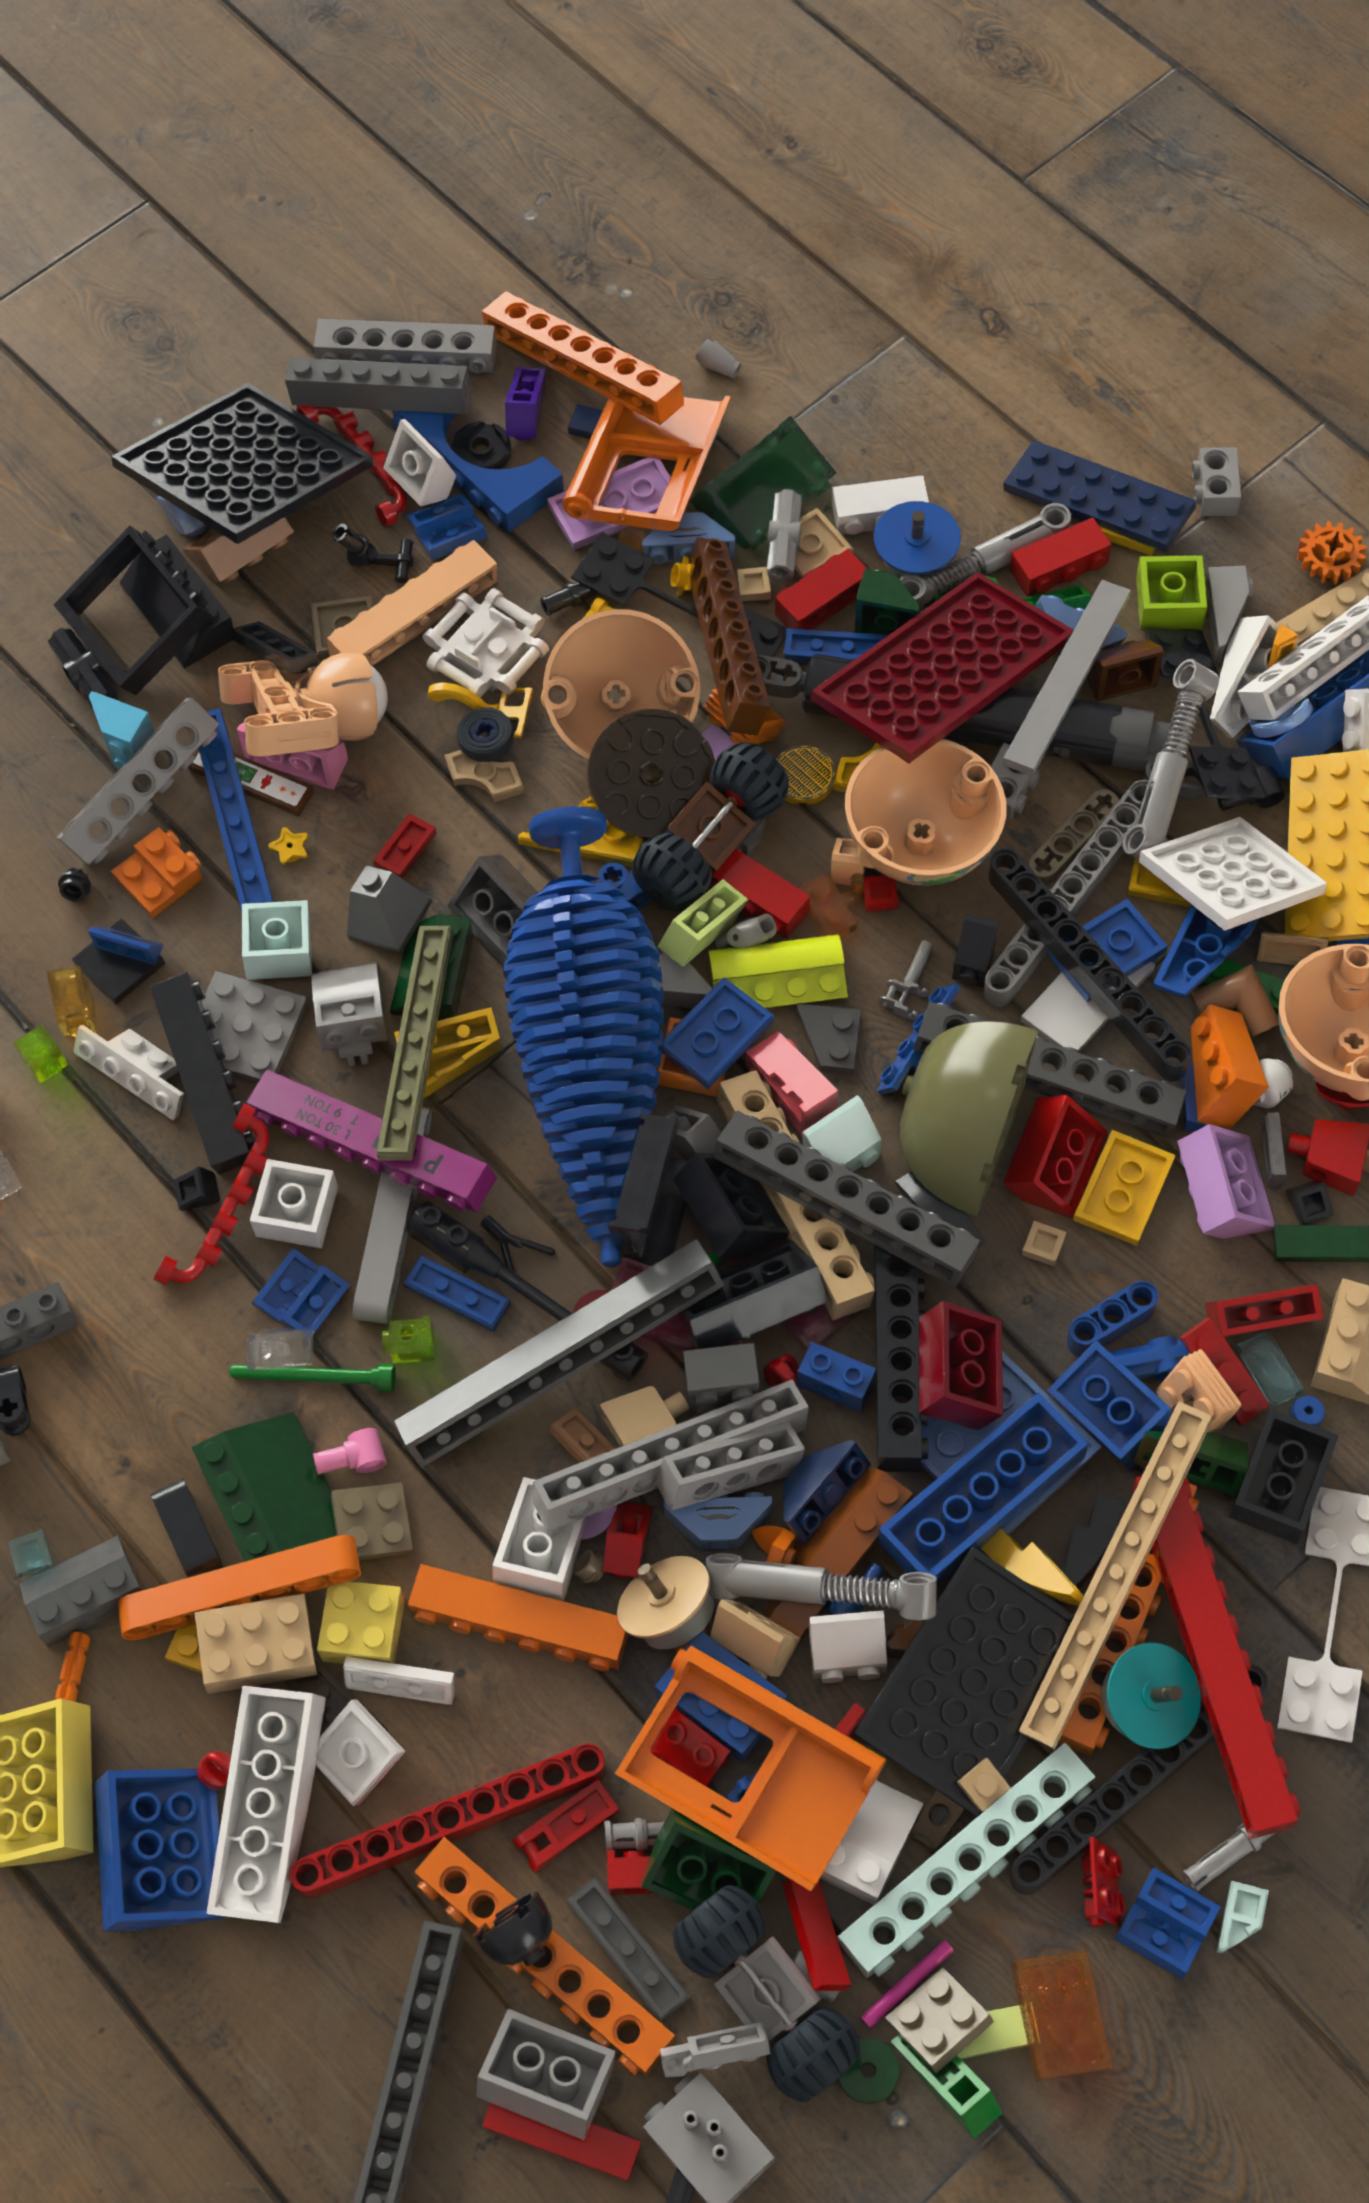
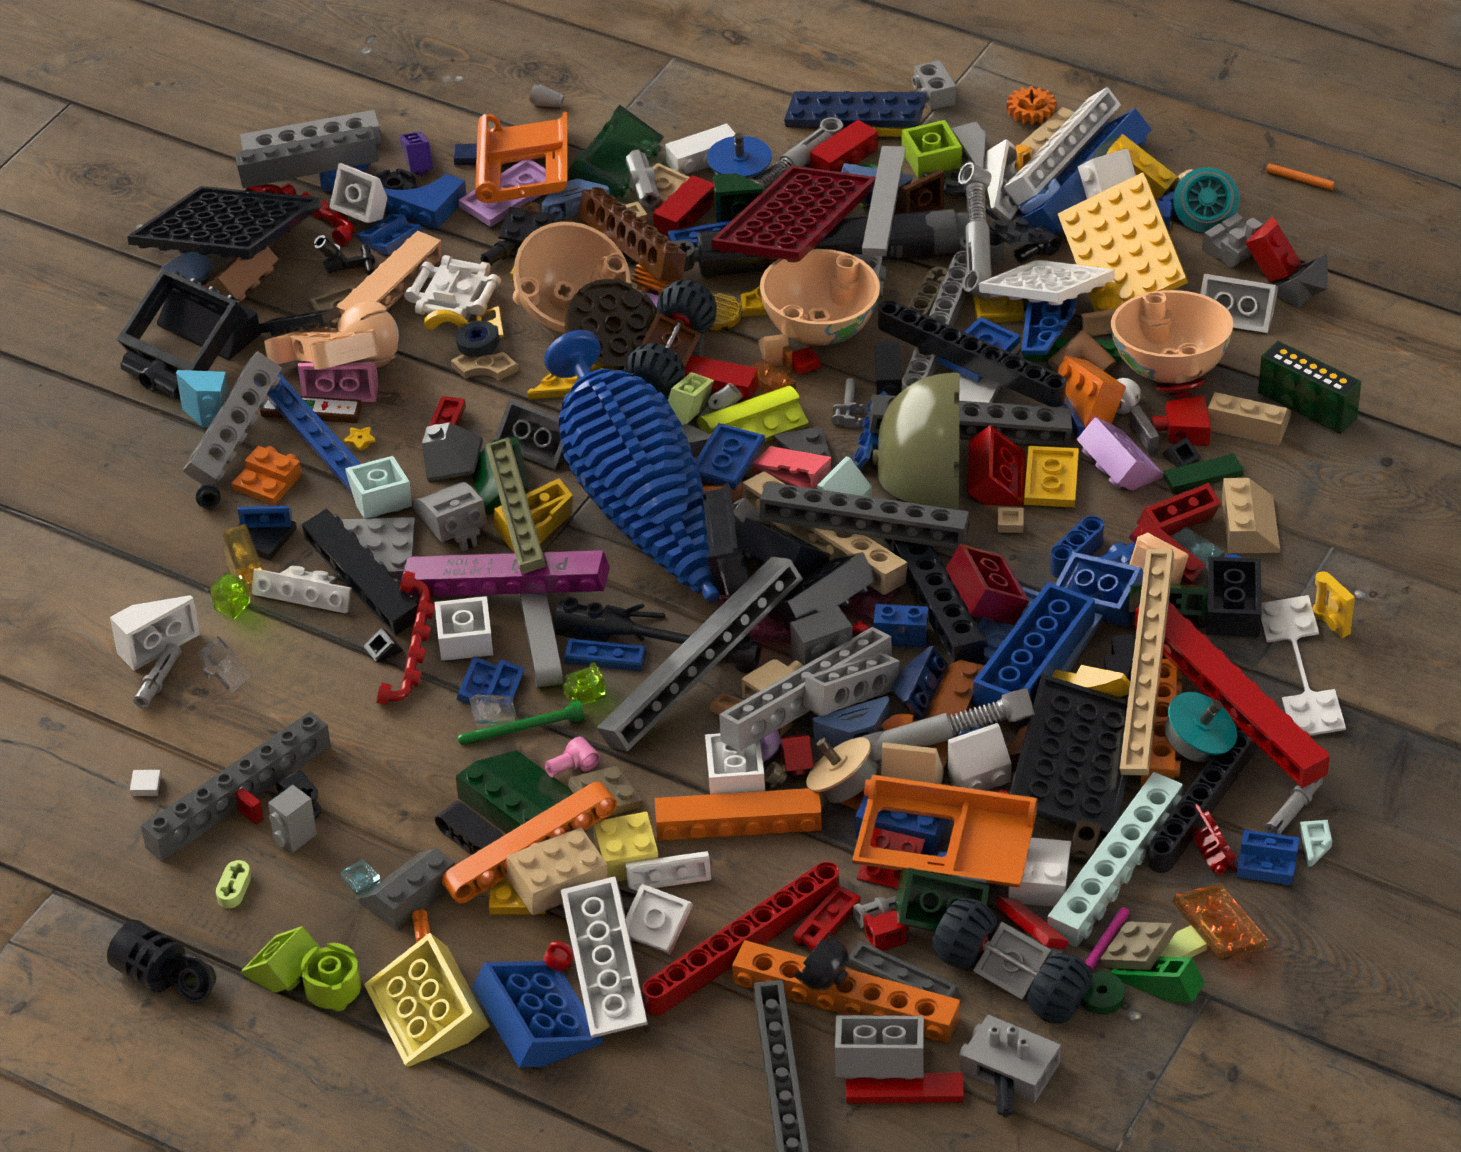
camera: 20 degrees left, 20 degrees down
(584, 358) = (452, 110): orange brick -> none
(681, 576) = (579, 216): yellow plate -> none
(715, 2049) = (990, 1001): light grey hinge -> none
(983, 1785) = (1108, 810): tan plate -> none

